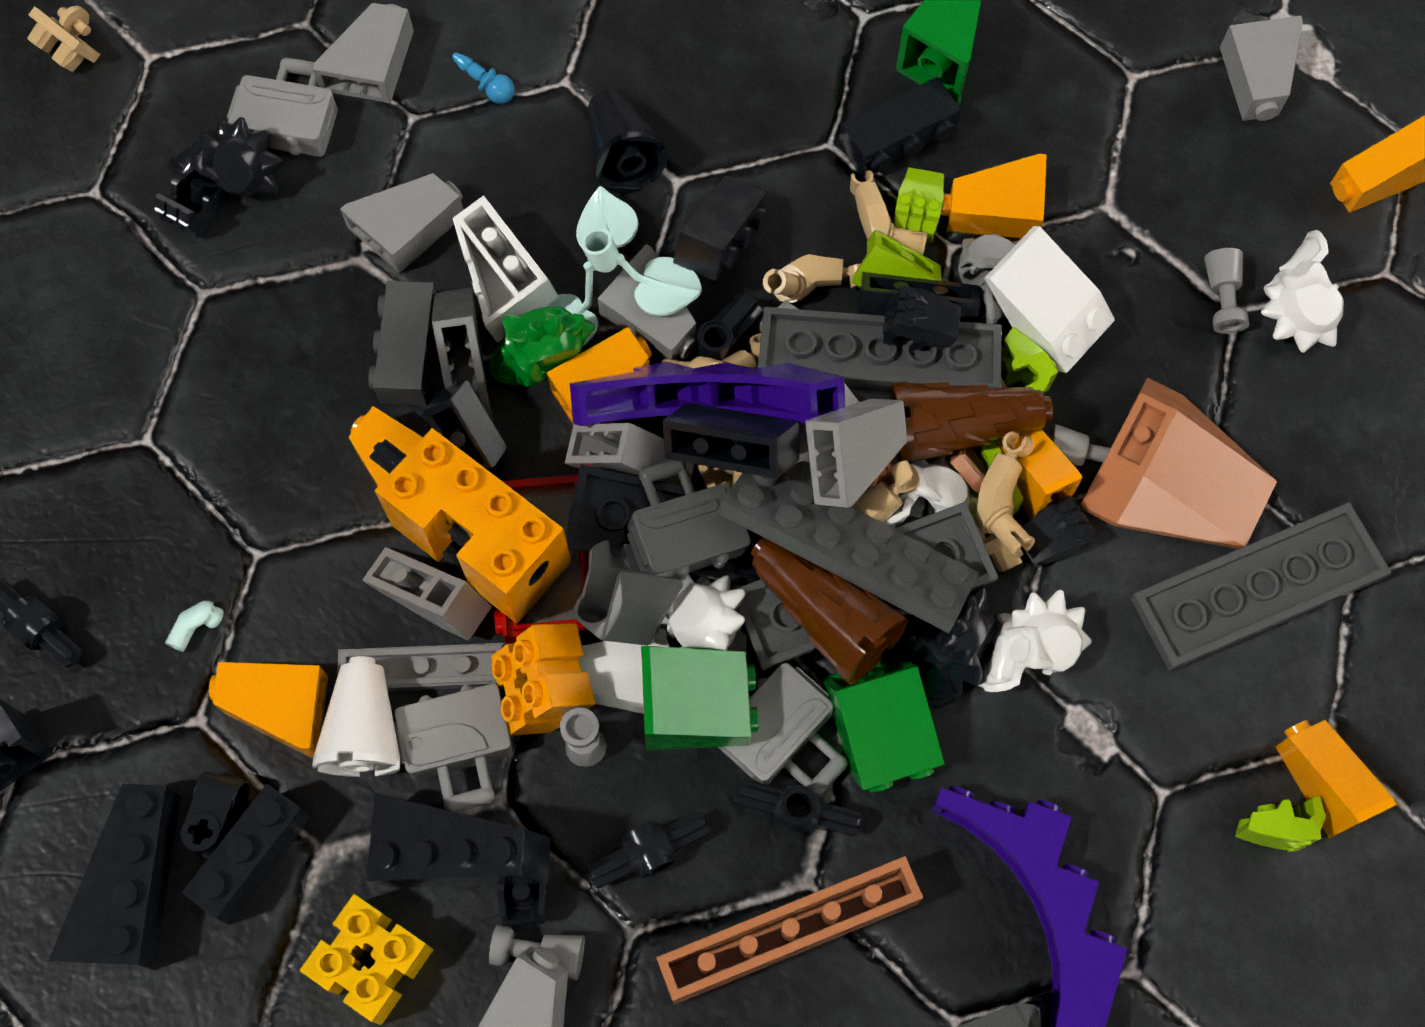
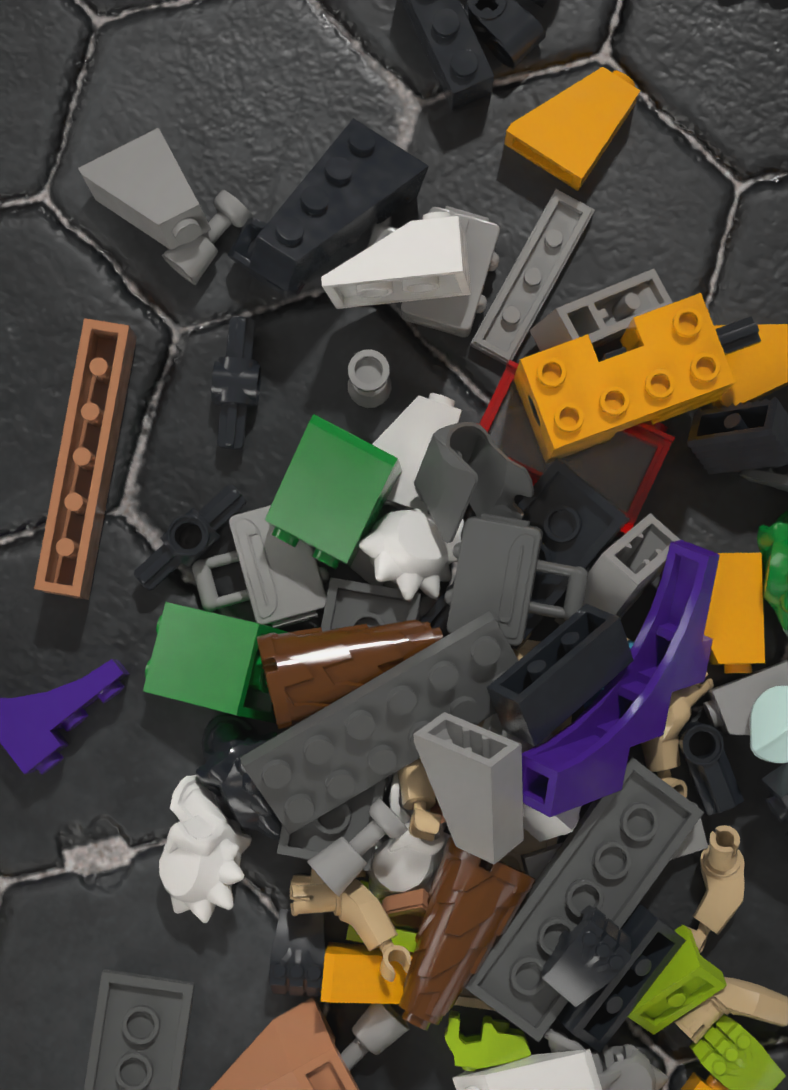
camera: 125 degrees right, 15 degrees up
(191, 619) = (705, 93): light aqua arm -> none
(339, 963) = (297, 63): yellow brick -> none
(358, 724) = (504, 186): white cone -> none
(460, 735) = (410, 264): none -> white slope
(541, 678) = (442, 369): light orange brick -> none
(971, 519) = (343, 859): none -> light grey piece

